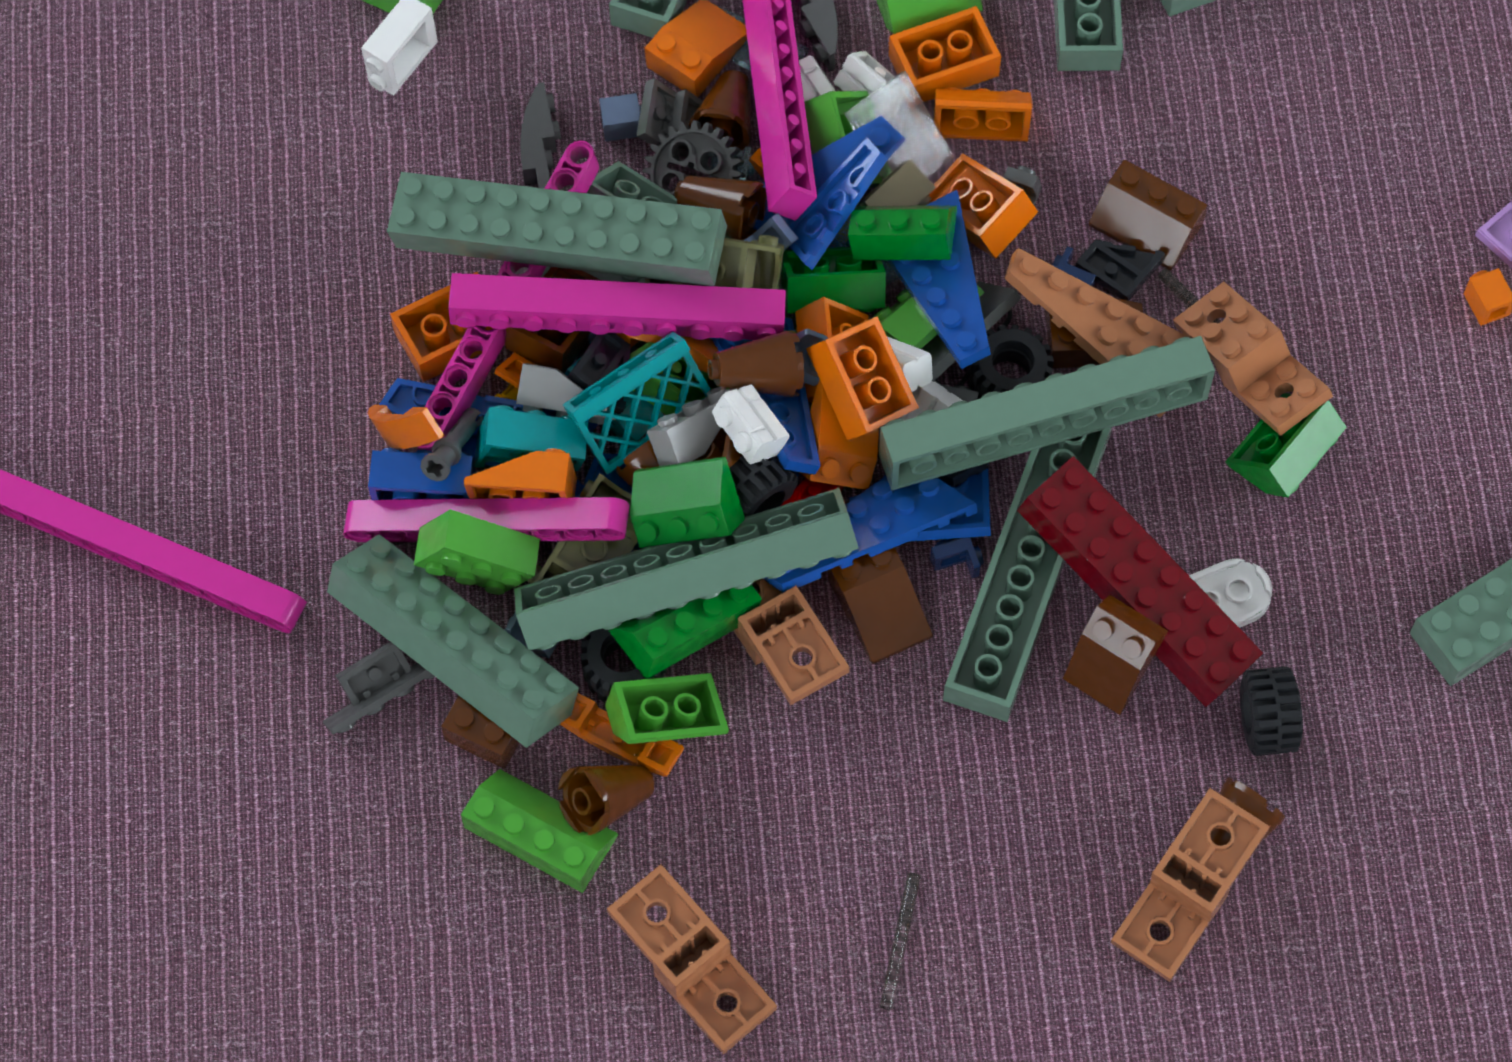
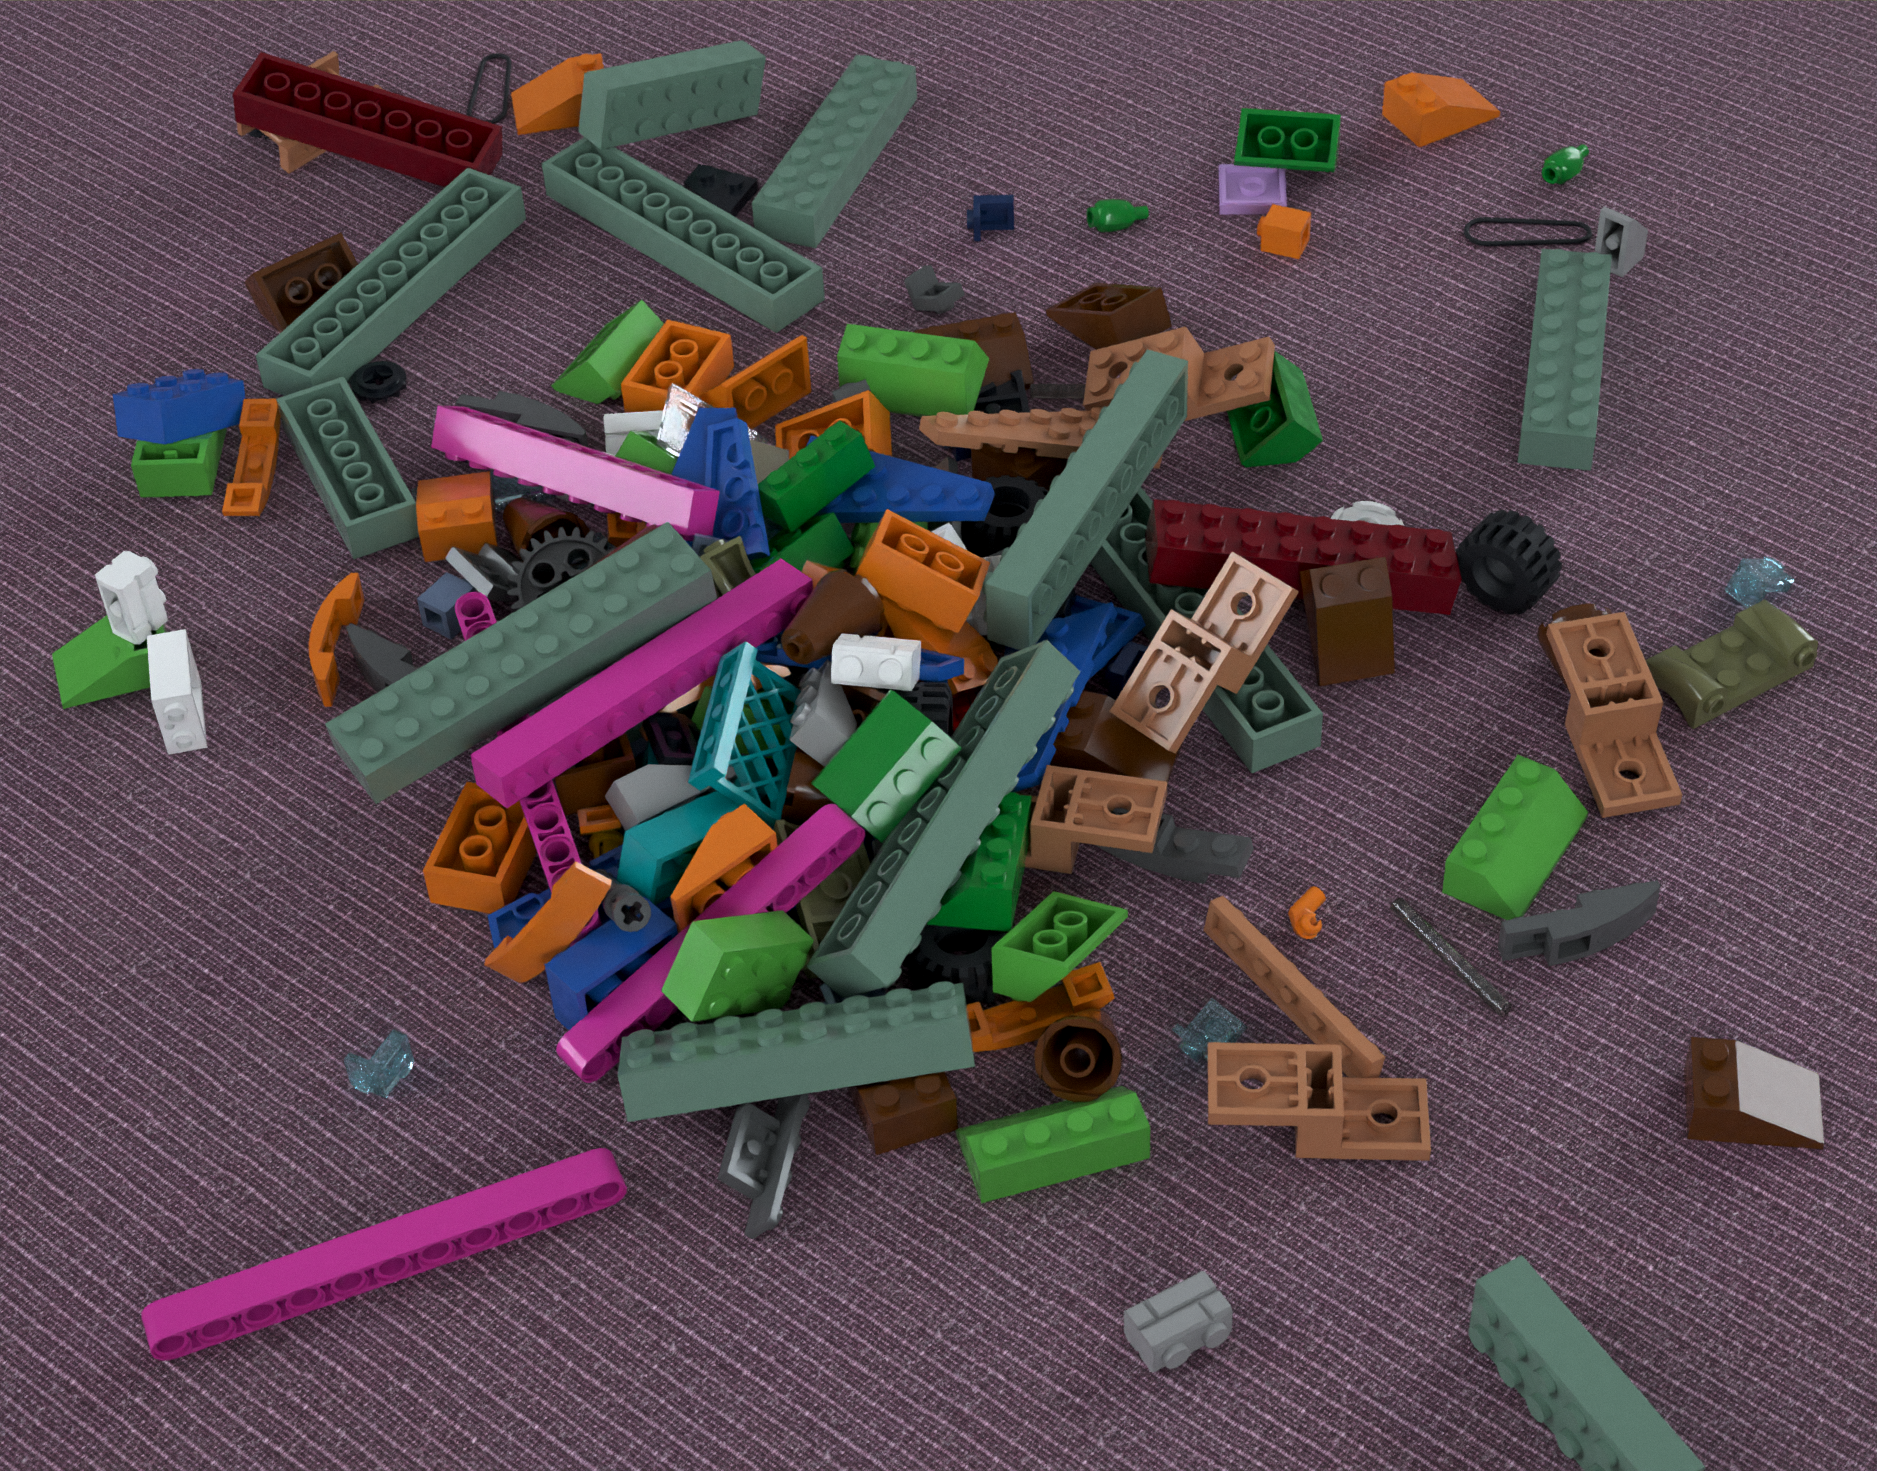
camera: 45 degrees left, 20 degrees down
(254, 426) = (384, 1069): none -> clear light blue bracket
(468, 1009) = (1178, 1322): none -> light grey brick
(562, 58) = (338, 609): none -> orange slope
(696, 851) = (1210, 1025): none -> clear light blue bracket
(774, 888) = (1290, 989): none -> nougat plate
(833, 721) = (1189, 852): none -> dark grey slope
(849, 827) = (1303, 916): none -> orange arm
(973, 599) = (1203, 652): none -> nougat bracket
(1009, 1010) = (1593, 925): none -> dark grey slope
(1031, 906) = (1514, 840): none -> bright green slope
(1081, 194) = (913, 370): none -> bright green slope
(1189, 130) = (929, 294): none -> dark grey bracket
(1282, 260) = (1112, 313): none -> reddish brown slope
(1308, 93) = (990, 213): none -> dark blue bracket
(1332, 920) = (1735, 663): none -> olive piece
(1394, 172) = (1114, 215): none -> green plant
(1436, 879) = (1756, 578): none -> clear light blue bracket

